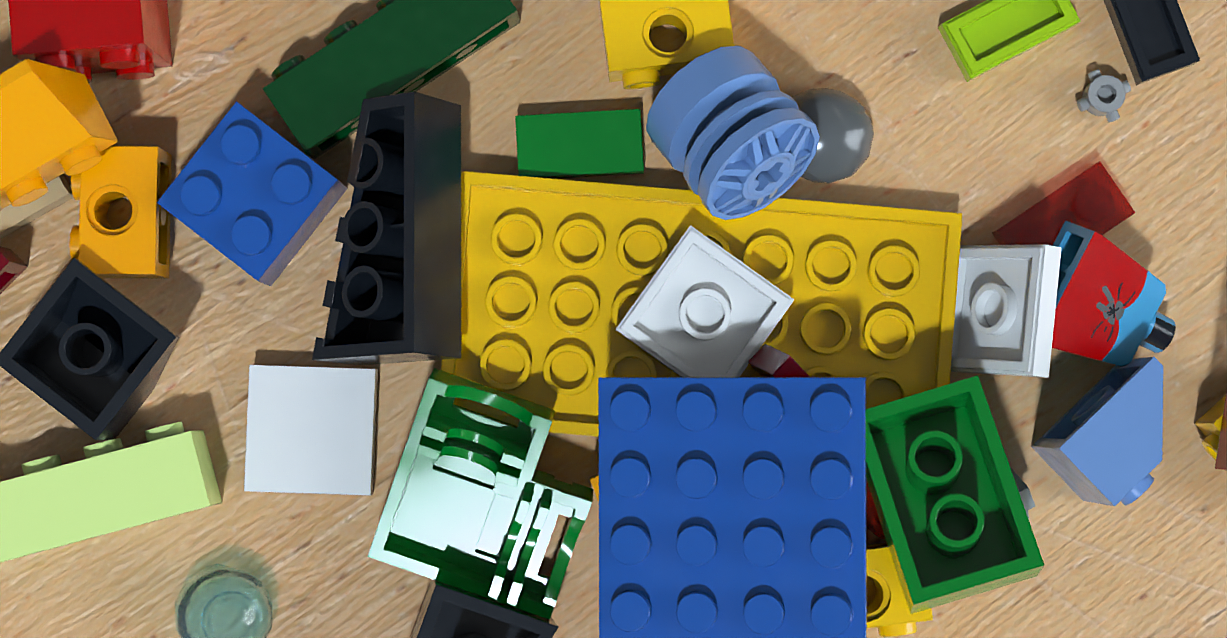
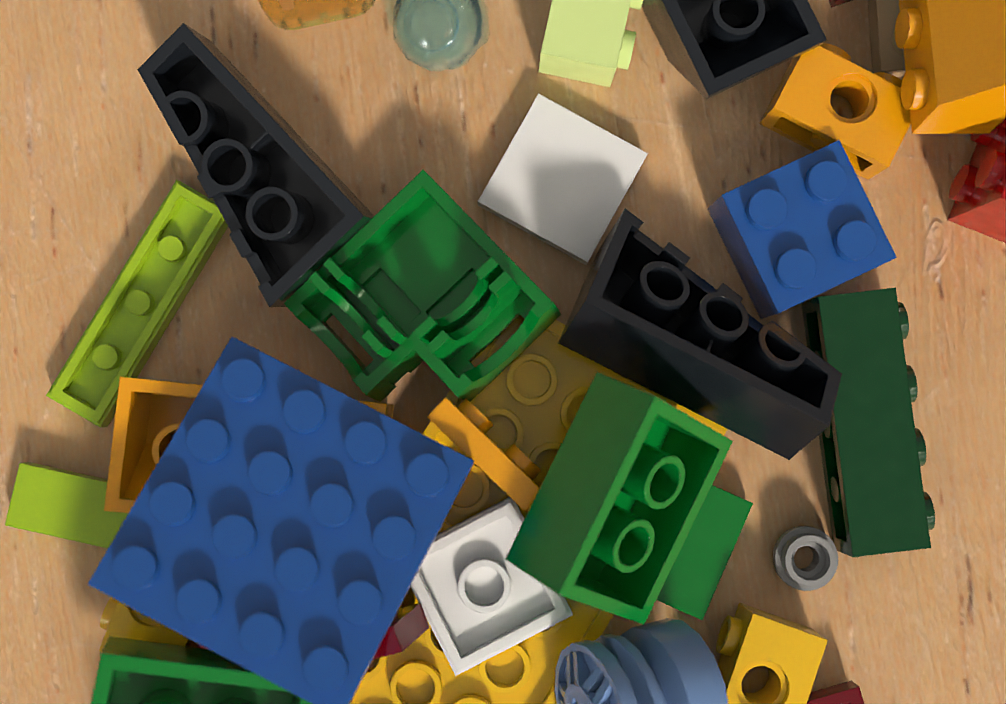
camera: 115 degrees right, 0 degrees up
(540, 26) = (823, 563): none -> light grey plate
(567, 237) = (618, 500): none -> green brick
(593, 343) = (508, 469): none -> light orange plate

